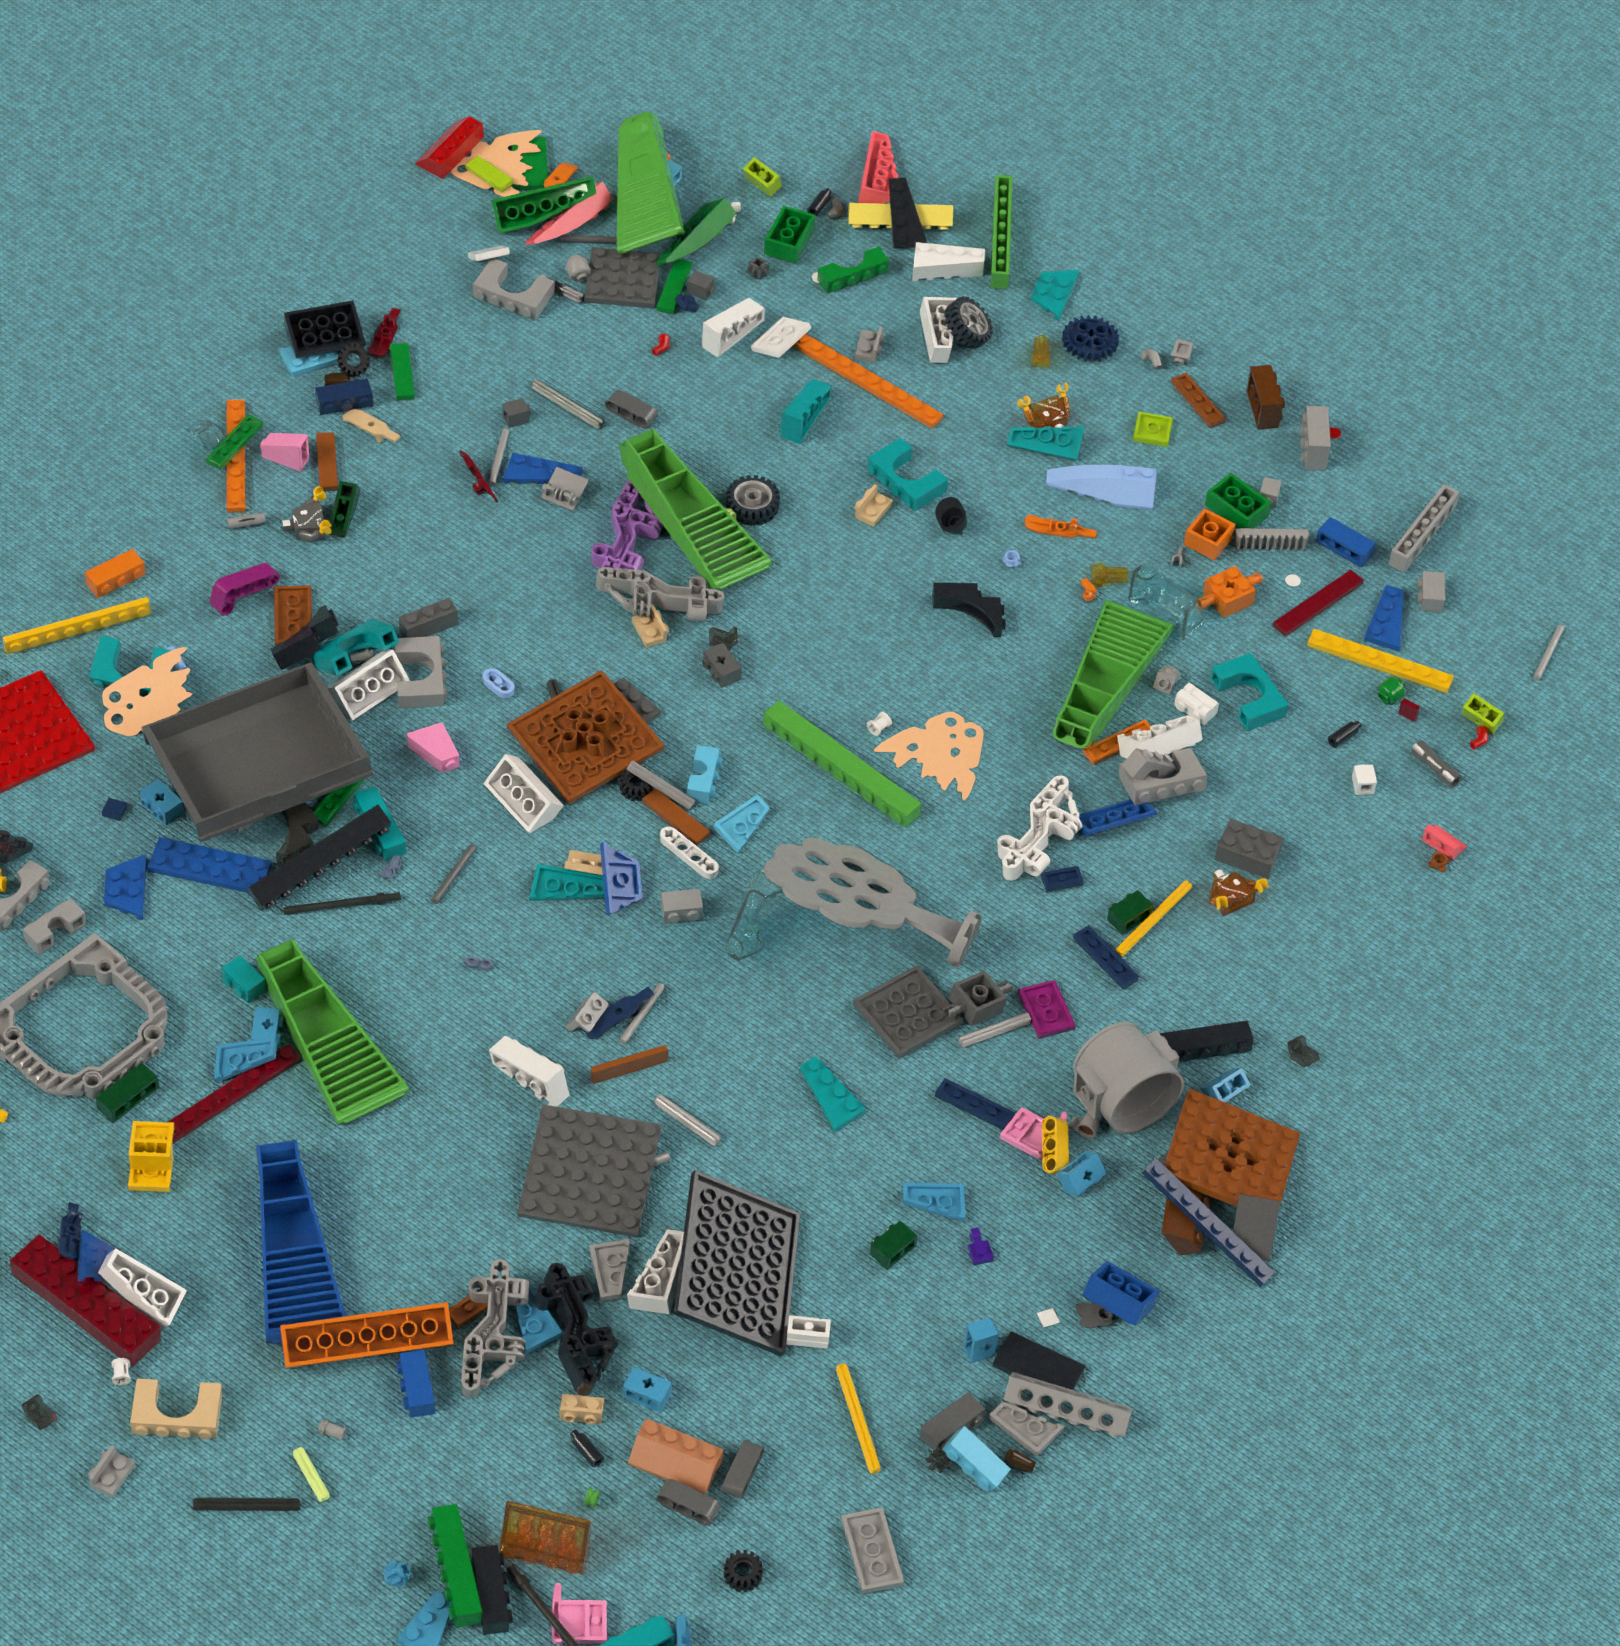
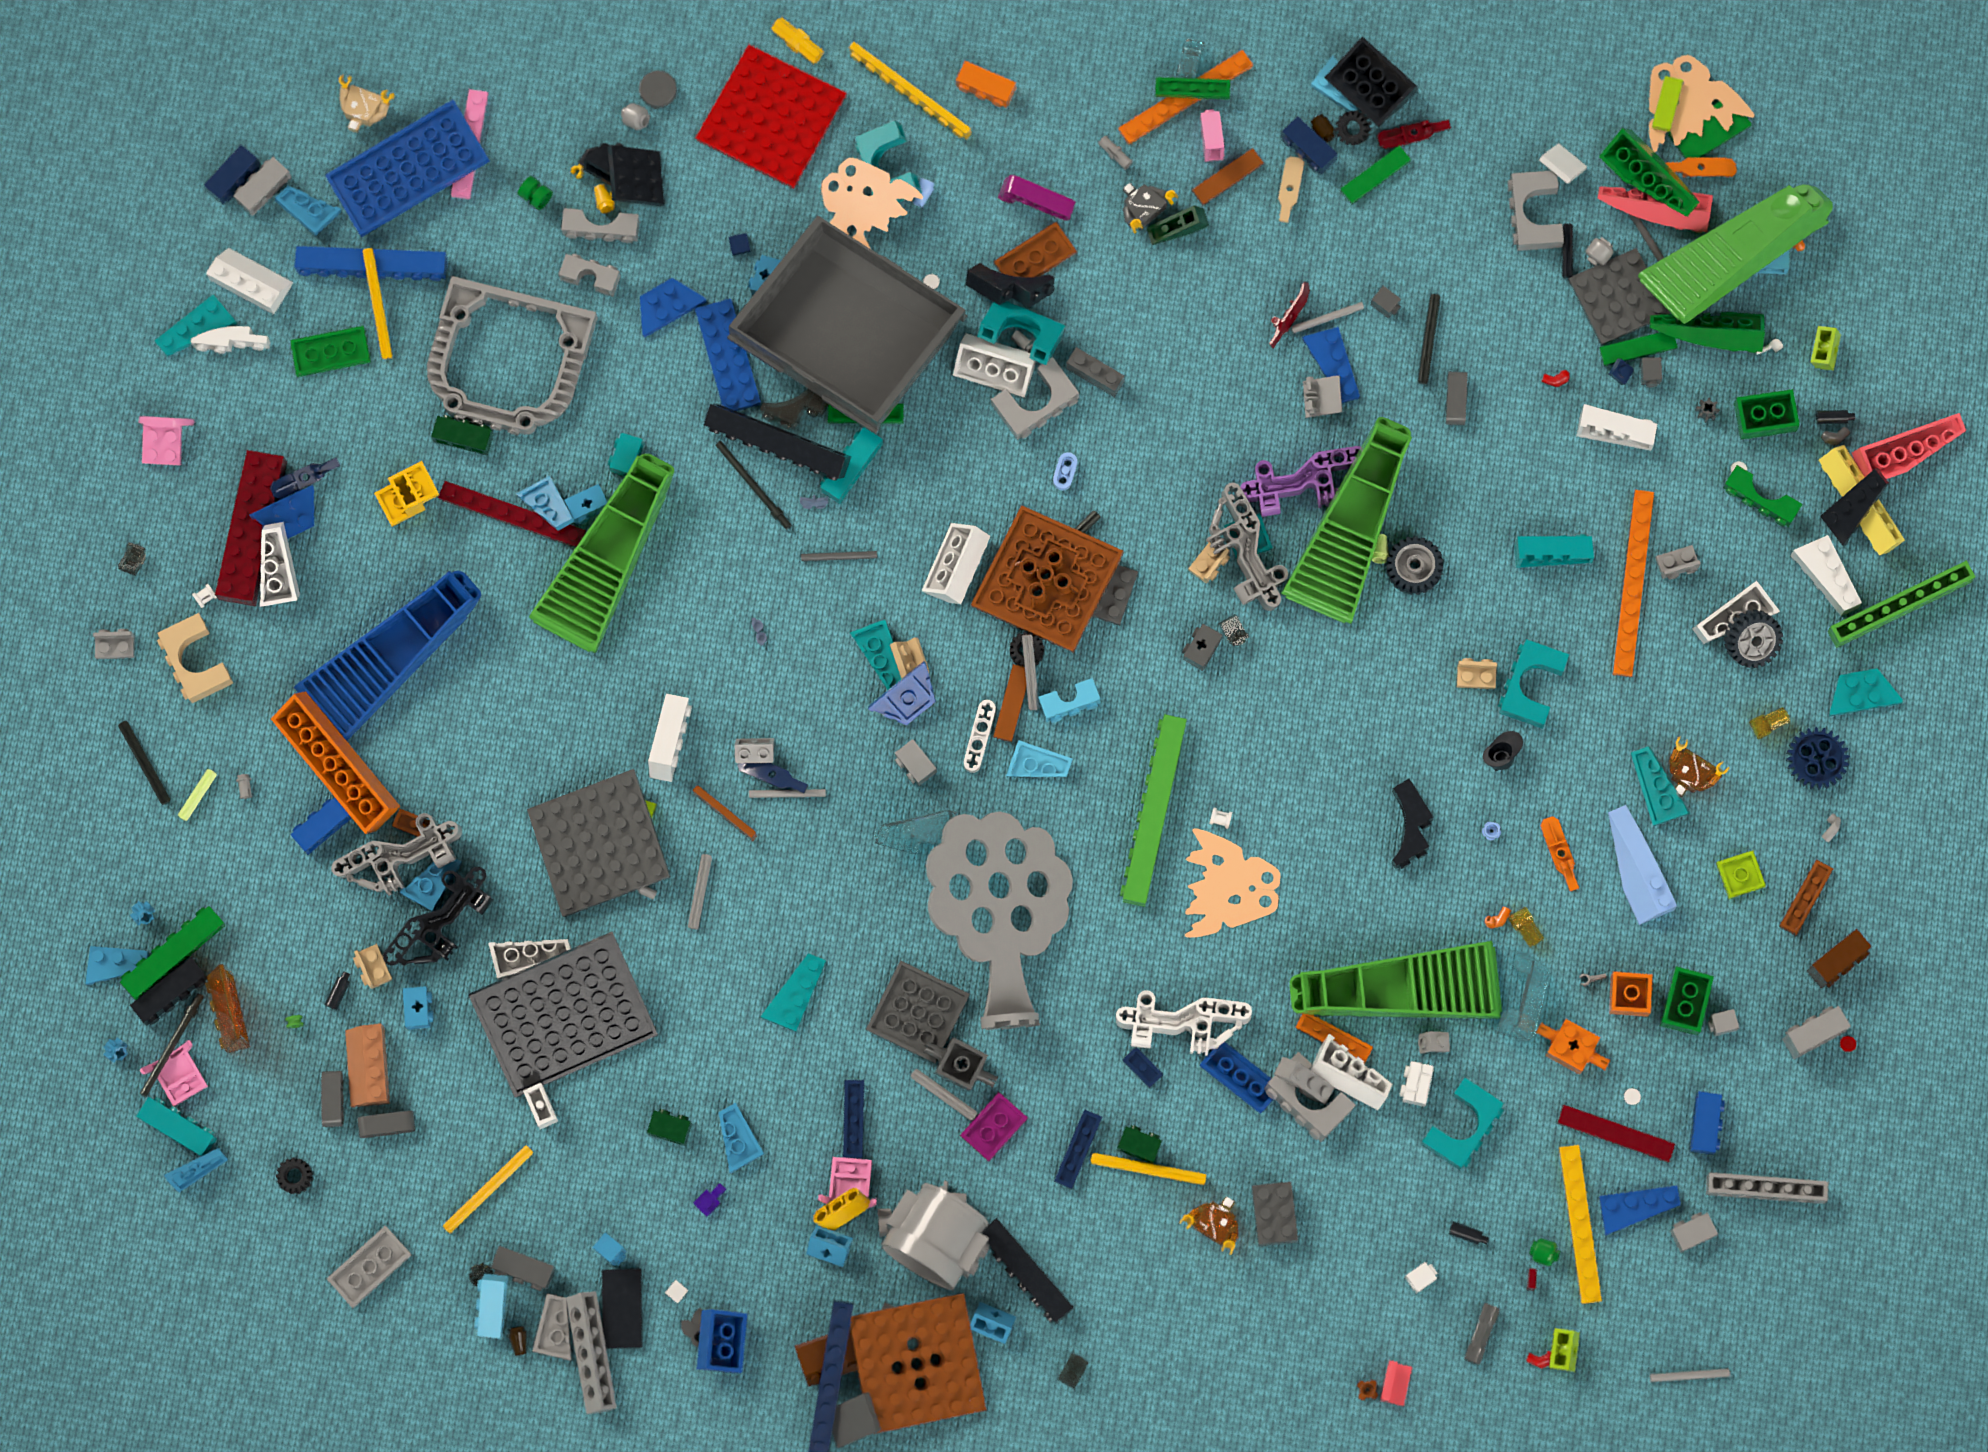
camera: 70 degrees right, 25 degrees up
(434, 746) = (961, 462): bright pink slope -> none
(452, 147) = (1679, 49): red slope -> none
(609, 1267) = (516, 912): light grey wing -> none
(780, 337) = (1632, 478): white tile -> none
(1182, 352) = (1855, 852): light grey bracket -> none
(1271, 538) = (1666, 1051): light grey gear -> none

